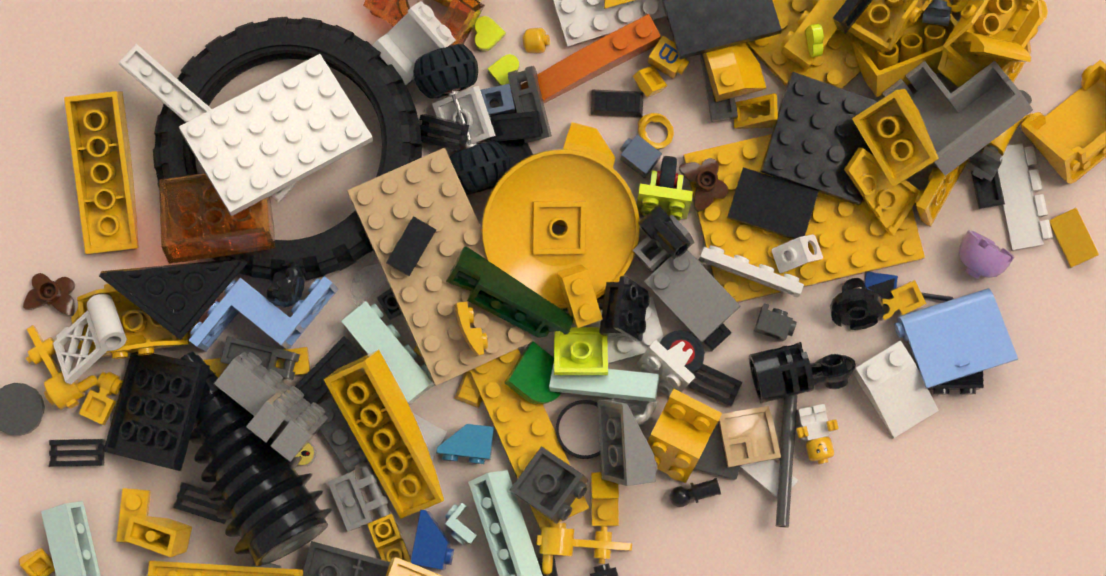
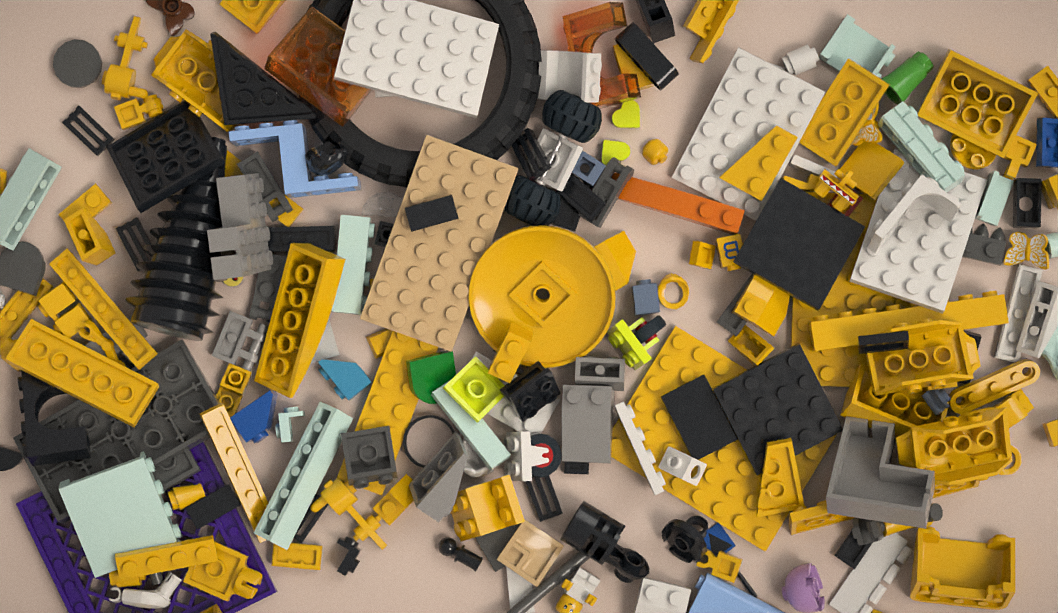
camera: 40 degrees right, 5 degrees up
(103, 330) = (180, 69): white piece -> none
(474, 337) = (414, 311): yellow slope -> none
(506, 296) = (462, 306): dark green wedge -> none
(617, 103) = (666, 247): black tile -> none
(661, 228) = (606, 361): black piece -> none
(705, 182) = (669, 359): reddish brown animal -> none
(774, 323) = (622, 496): dark grey brick -> none
(815, 39) = (833, 338): neon yellow tile -> none
(897, 136) = (820, 456): yellow slope -> none
(995, 47) = (944, 462): yellow slope -> none

